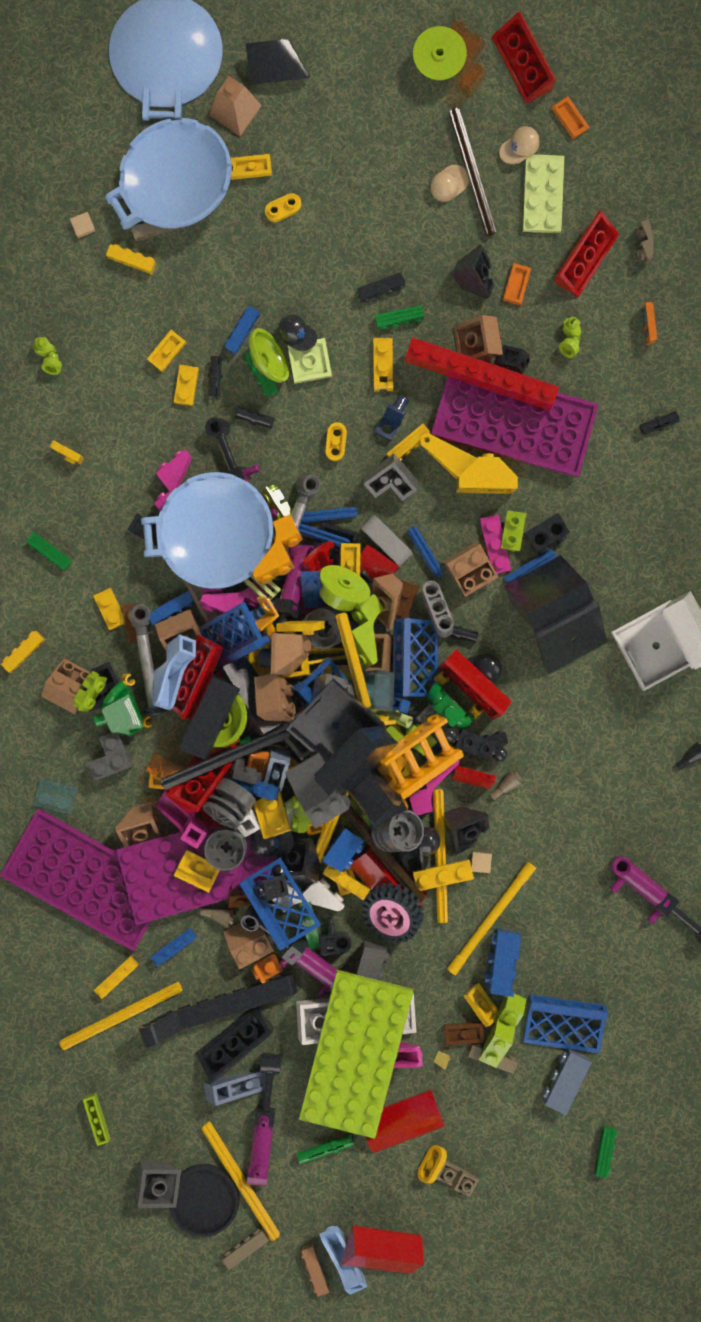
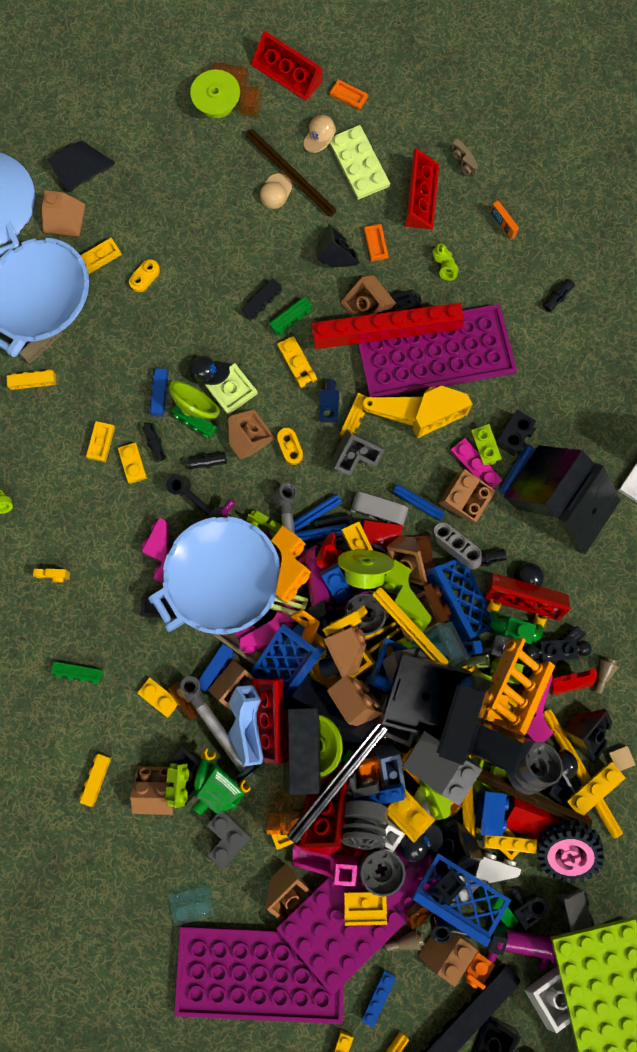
camera: 25 degrees left, 10 degrees down
(304, 411) = (248, 433): none -> medium nougat slope
(391, 658) = (434, 595): none -> reddish brown plate

